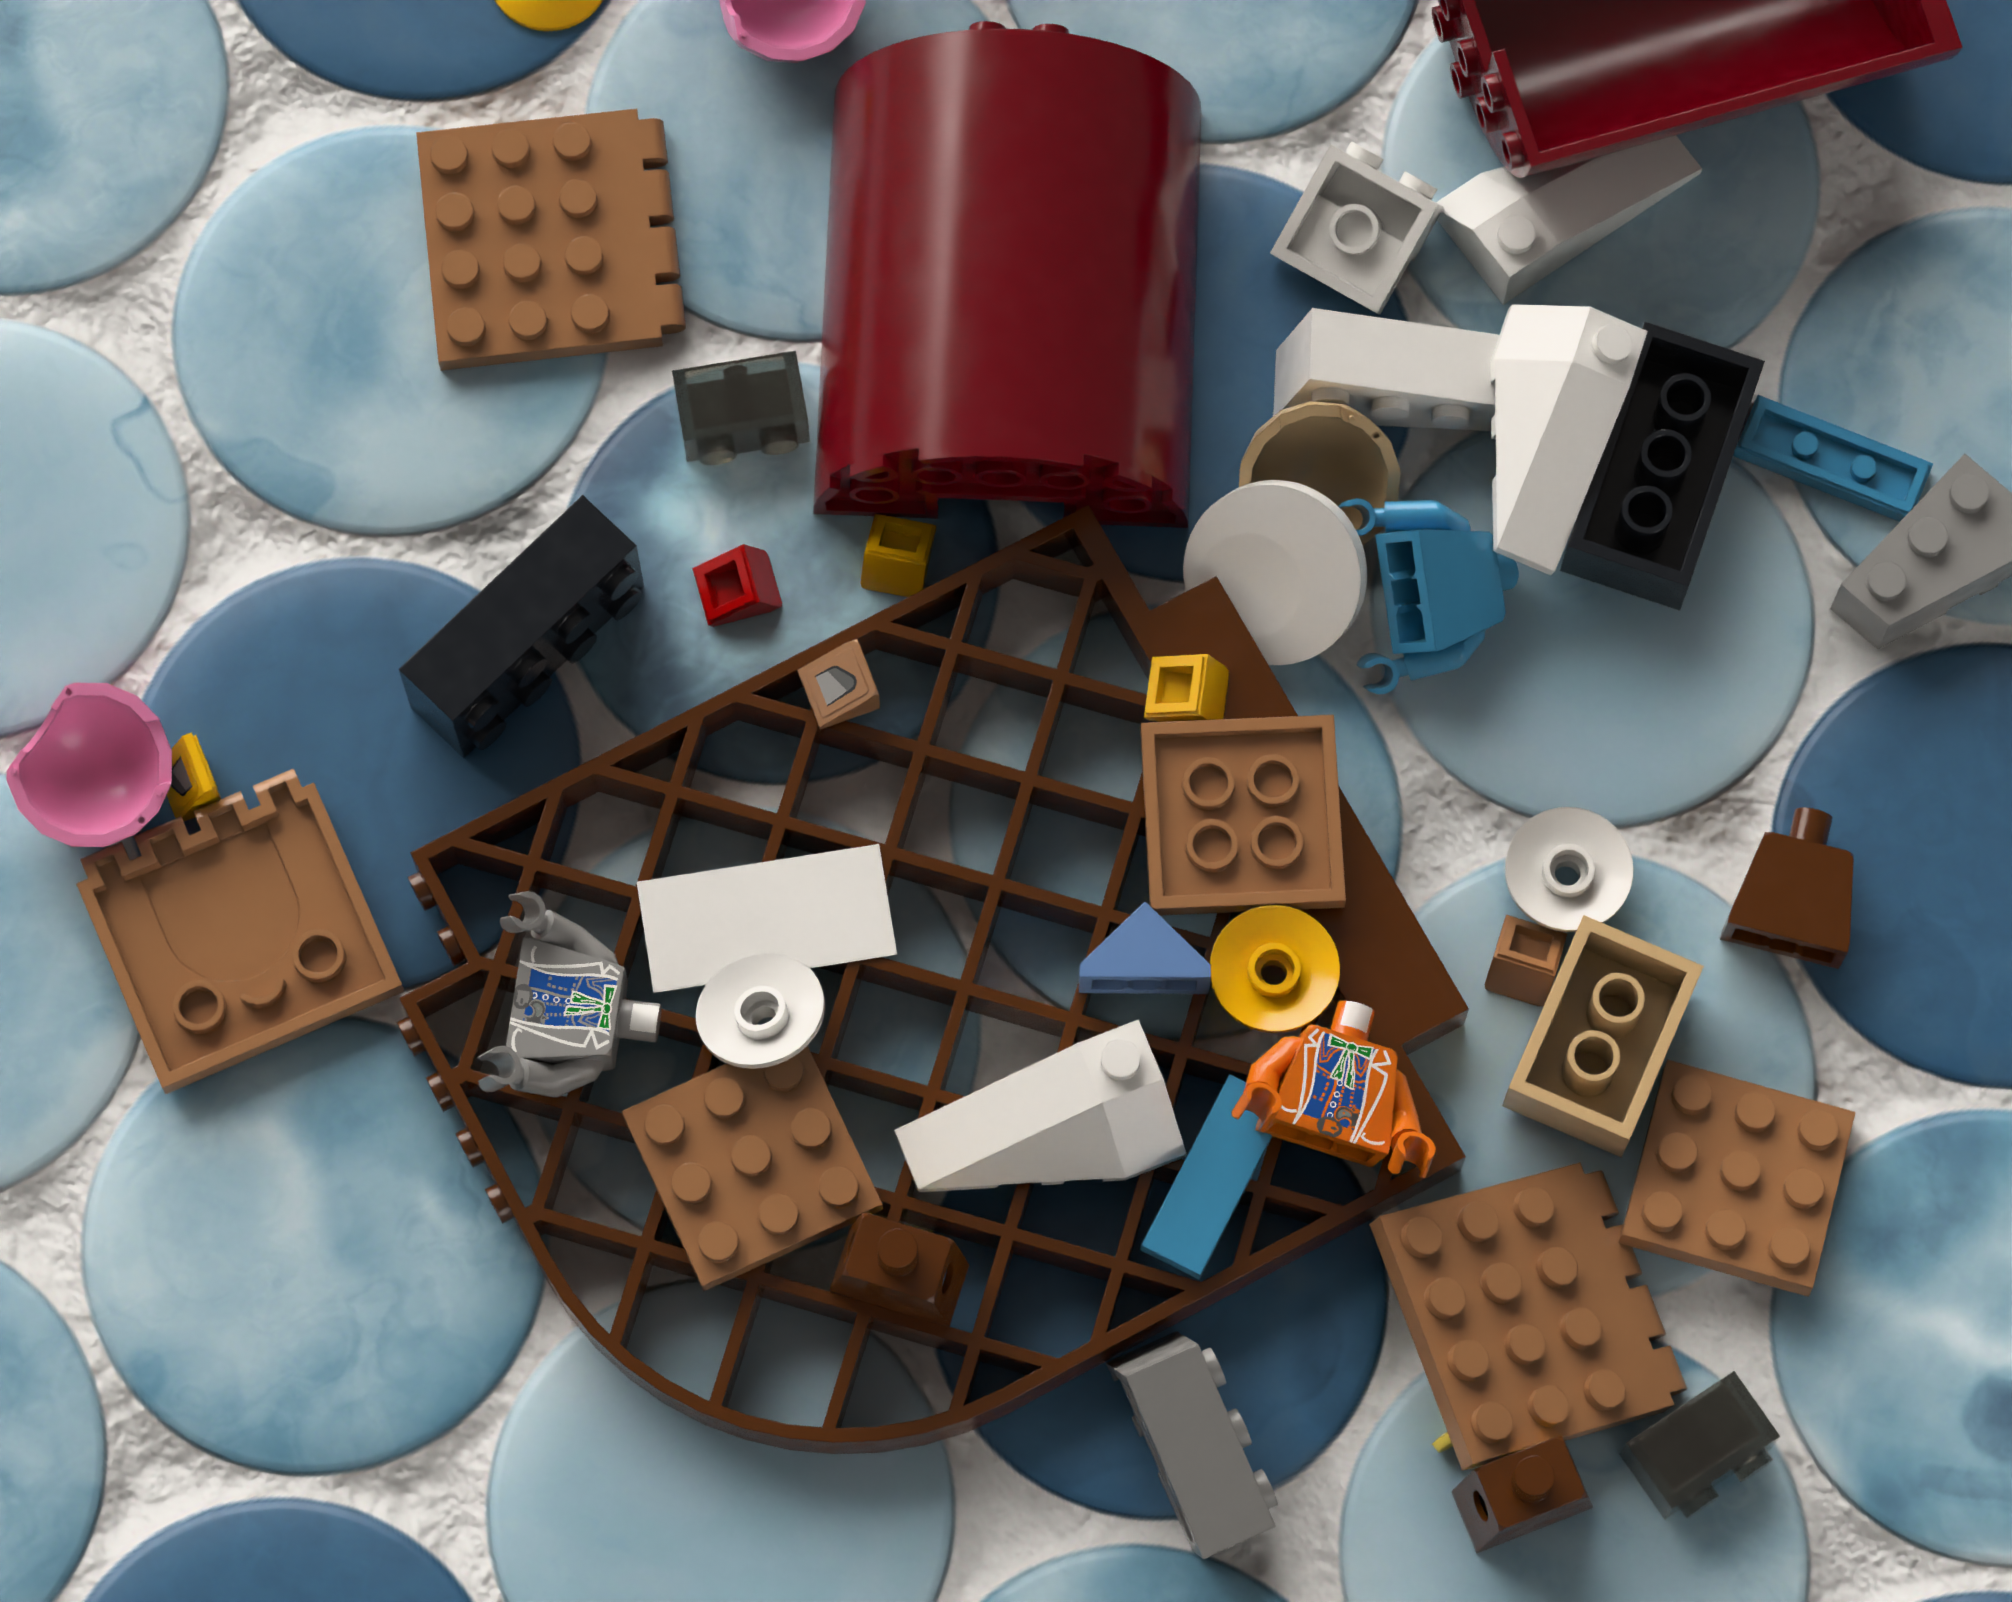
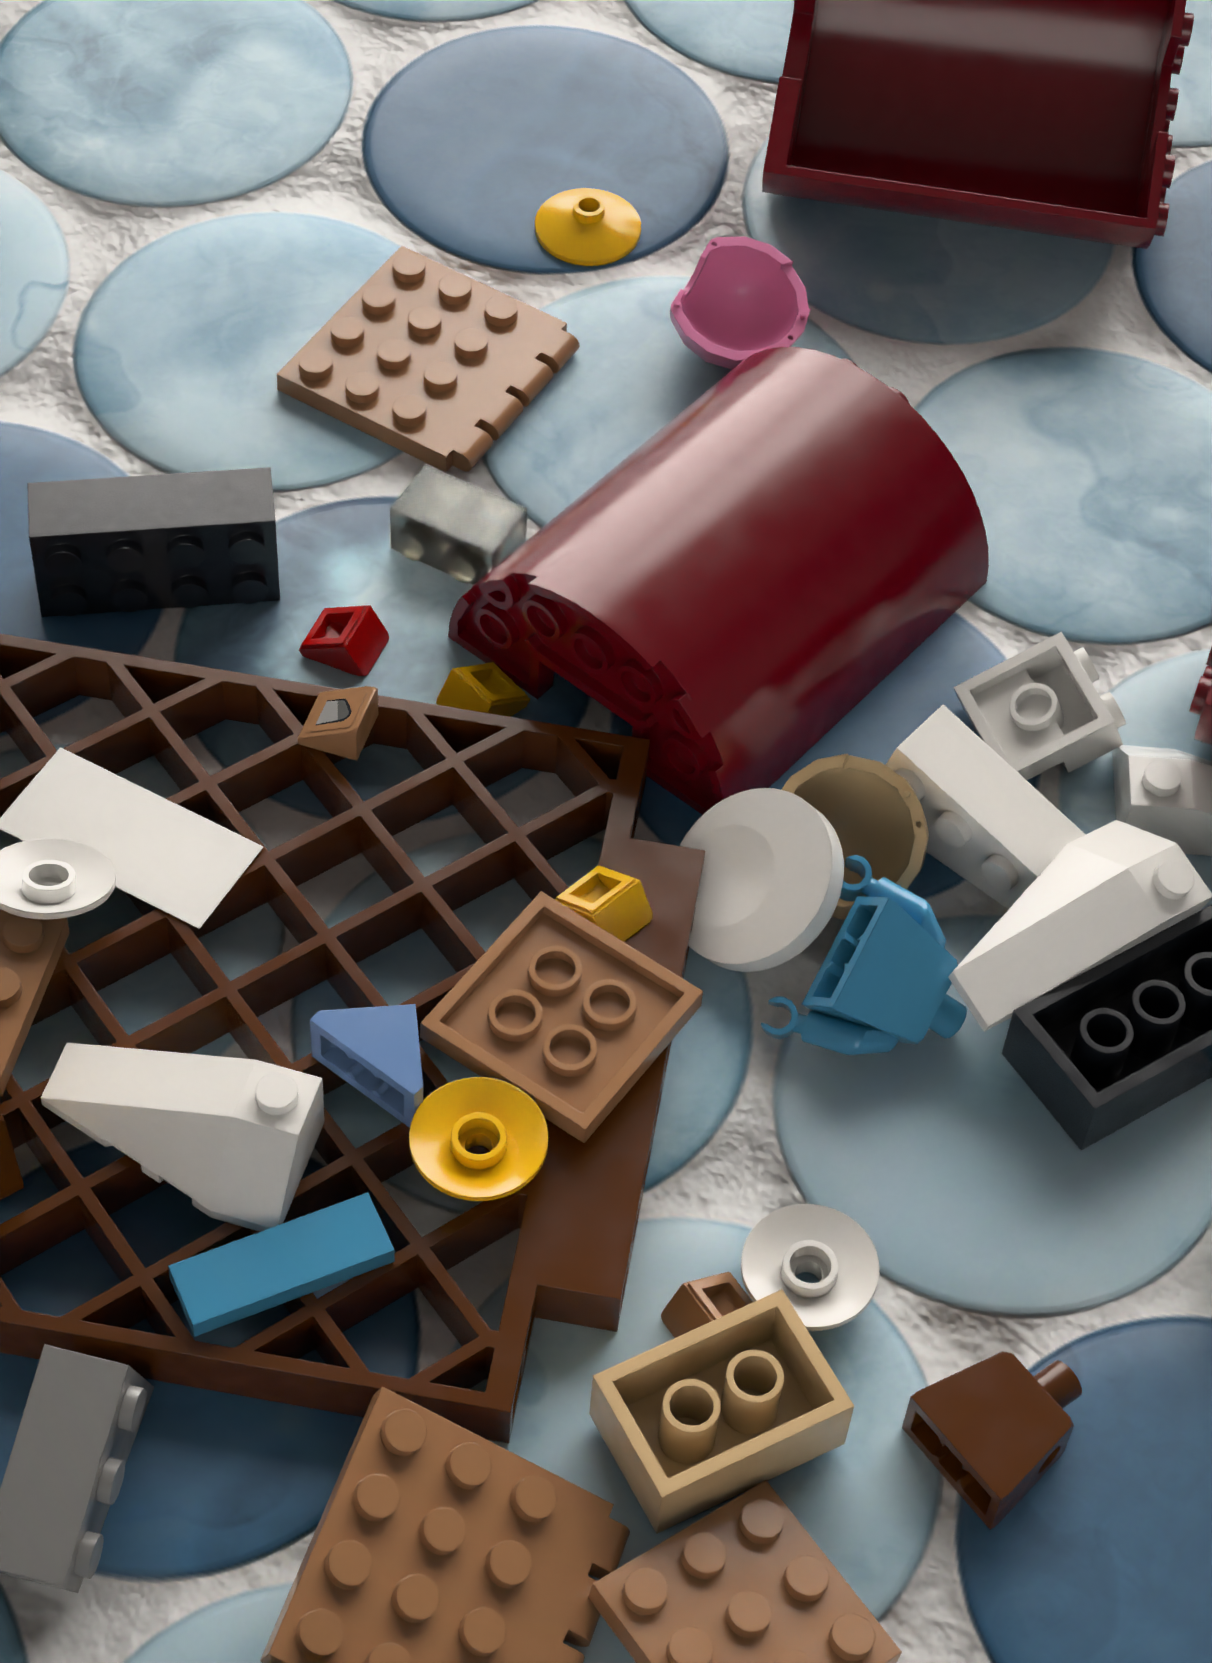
camera: 35 degrees right, 20 degrees down
(1338, 1094) = (432, 1259): orange torso -> none

